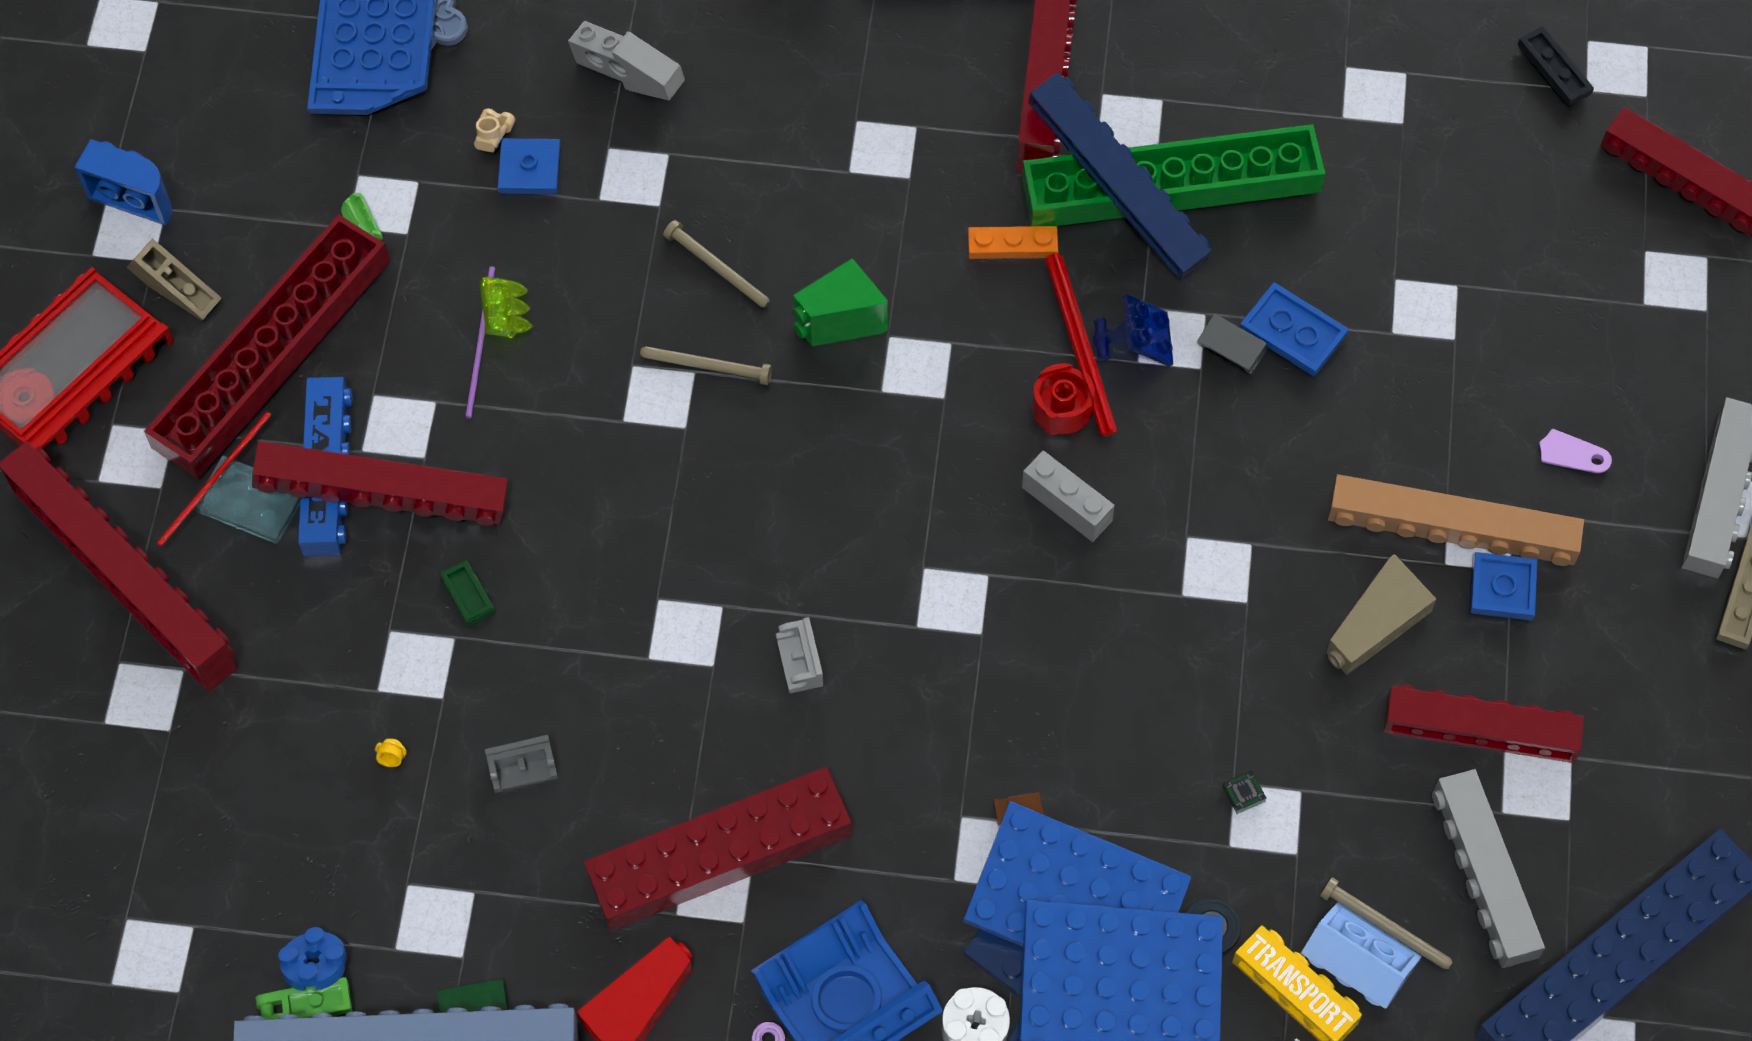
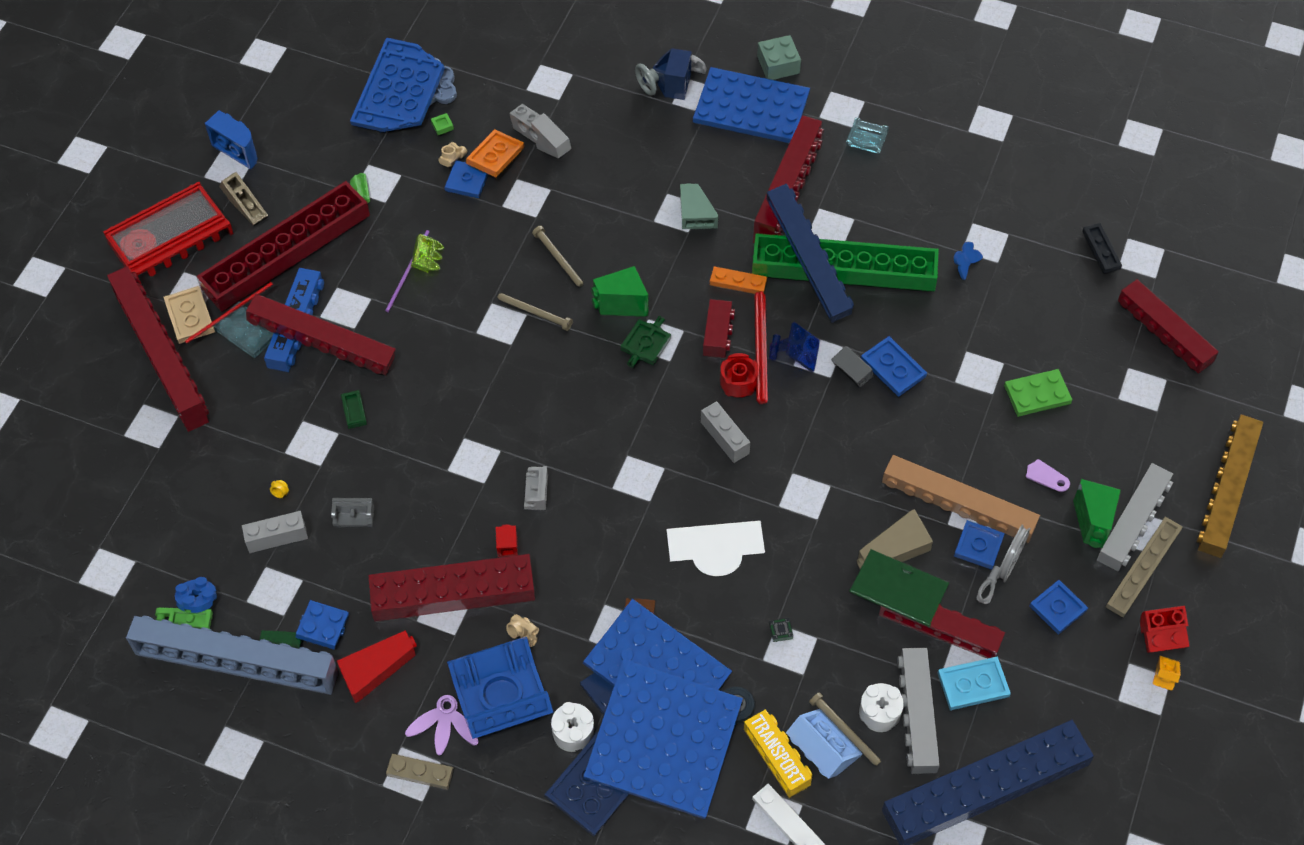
camera: 15 degrees right, 5 degrees down
(145, 495) = (188, 313): none -> tan plate
(407, 825) = (274, 532): none -> light grey brick
(460, 81) = (442, 124): none -> bright green plate
(531, 958) = (322, 624): none -> blue plate
(563, 113) = (495, 153): none -> orange plate
(780, 752) = (506, 541): none -> red brick
(848, 886) = (522, 627): none -> tan plate
(899, 376) = (646, 342): none -> dark green plate
(912, 137) = (696, 208): none -> sand green slope
(1006, 329) = (718, 328): none -> dark red brick
(1105, 683) = (716, 548): none -> white sticker
(1351, 129) = (965, 257): none -> blue animal
(1406, 689) = (898, 590): none -> dark green container
(1416, 875) = (881, 696): none -> white brick
(1522, 322) = (1038, 392): none -> bright green plate
(1535, 638) = (991, 580): none -> light grey piece
(1556, 806) = (973, 683): none -> medium azure plate
(1564, 590) = (1013, 553): none -> light grey wedge
(1648, 656) = (1058, 607): none -> blue plate
(1665, 494) = (1095, 511): none -> green slope

